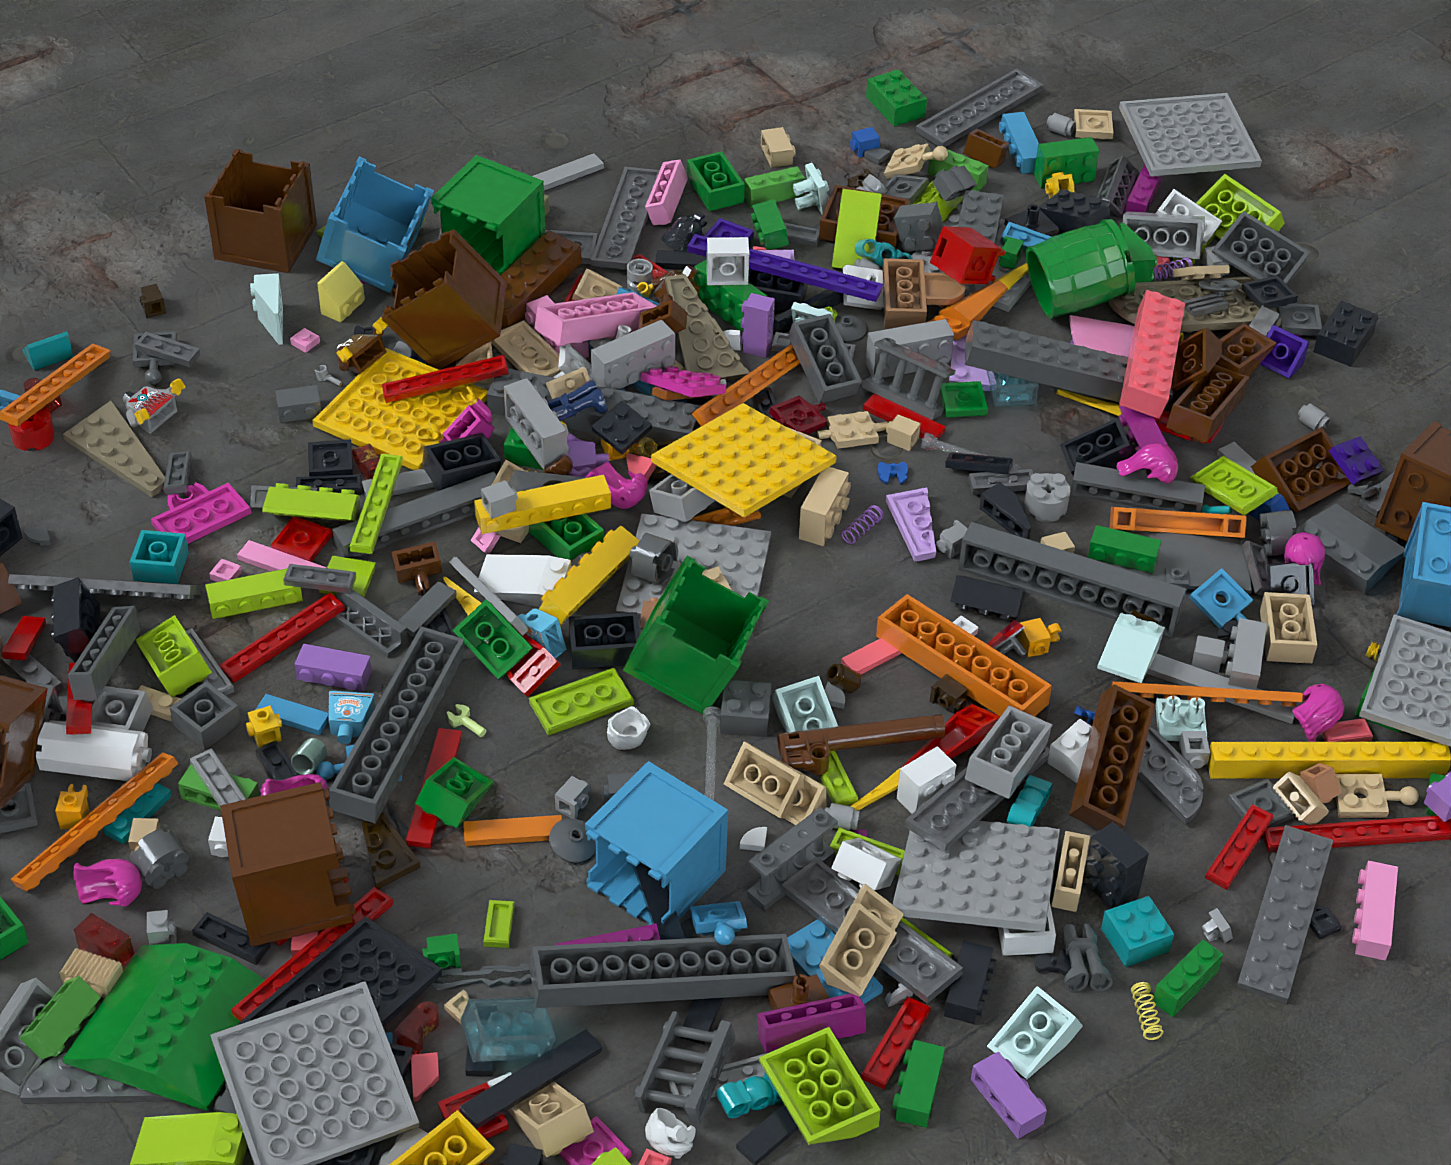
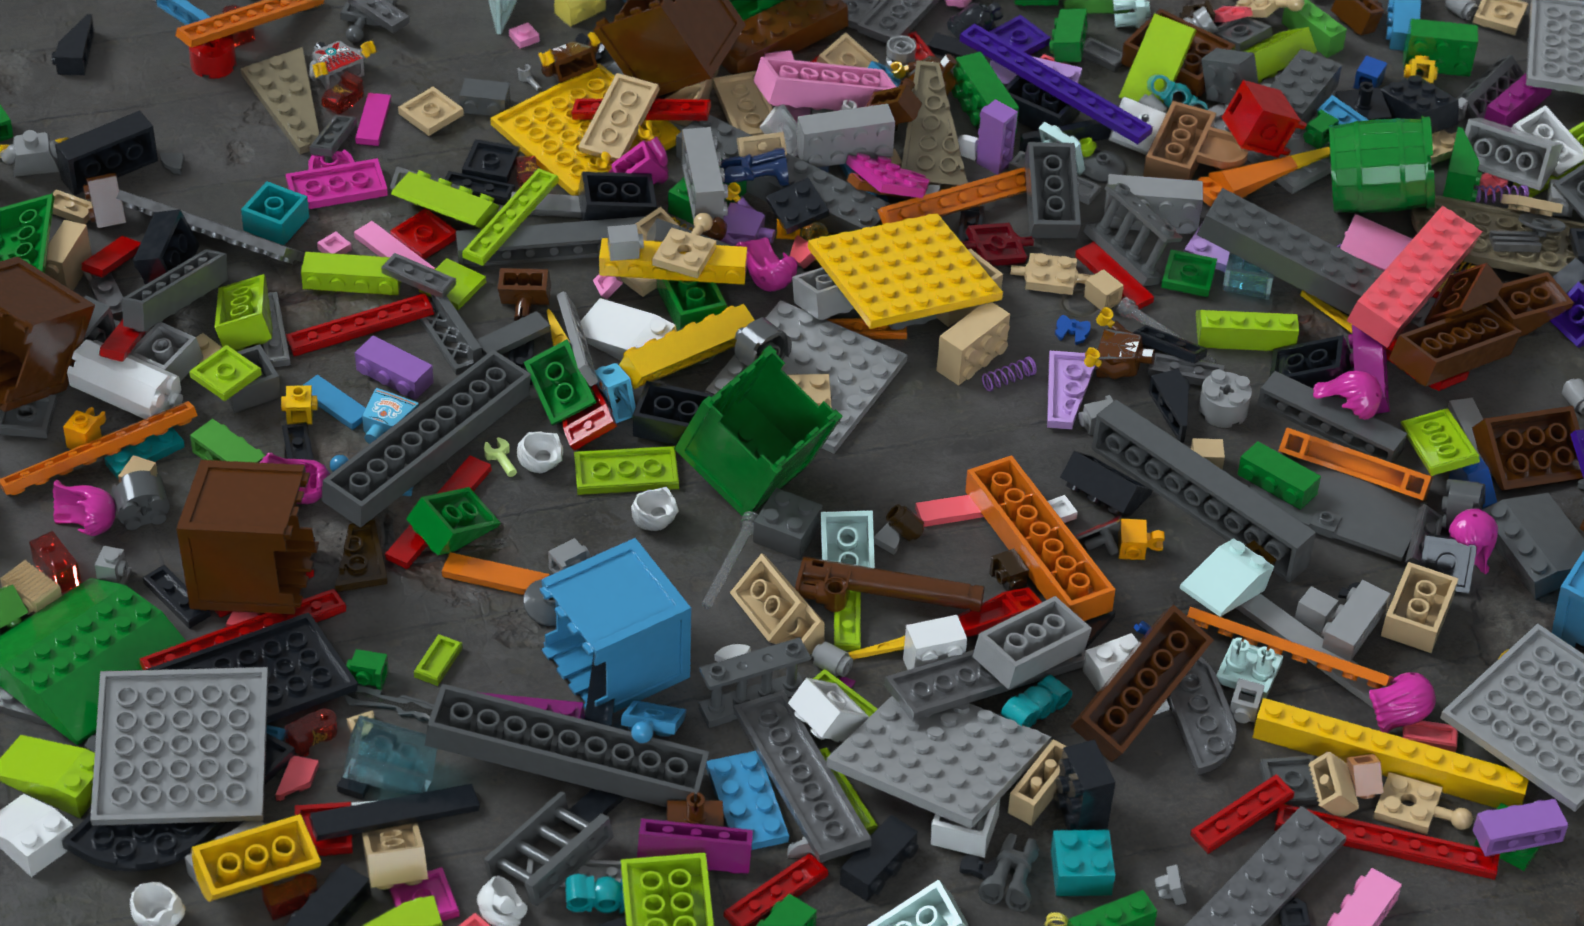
camera: 20 degrees right, 0 degrees up
(169, 432) = (344, 94): none -> clear red leg
(187, 716) = (225, 372): none -> lime tile
(205, 448) = (373, 119): none -> dark pink tile
(216, 778) = (226, 436): light grey tile -> none
(255, 428) = (431, 111): none -> tan plate
(308, 756) = (327, 445): sand green piece -> none
(431, 390) = (619, 117): none -> tan plate
(502, 706) = (540, 451): none -> white hair
(546, 484) = (698, 248): none -> tan plate
(727, 261) = (987, 59): white brick -> none
(860, 942) = (776, 779): tan slope -> none
(888, 175) = (1231, 13): none -> coral tile
(943, 479) = (1118, 350): none -> reddish brown torso
(954, 182) = (1291, 37): dark grey brick -> none
(1020, 198) = (1370, 71): none -> blue brick
(1032, 434) = (1246, 330): none -> lime slope
(1216, 509) = (1408, 463): teal piece -> none
(1218, 612) = (1370, 542): dark azure plate -> none

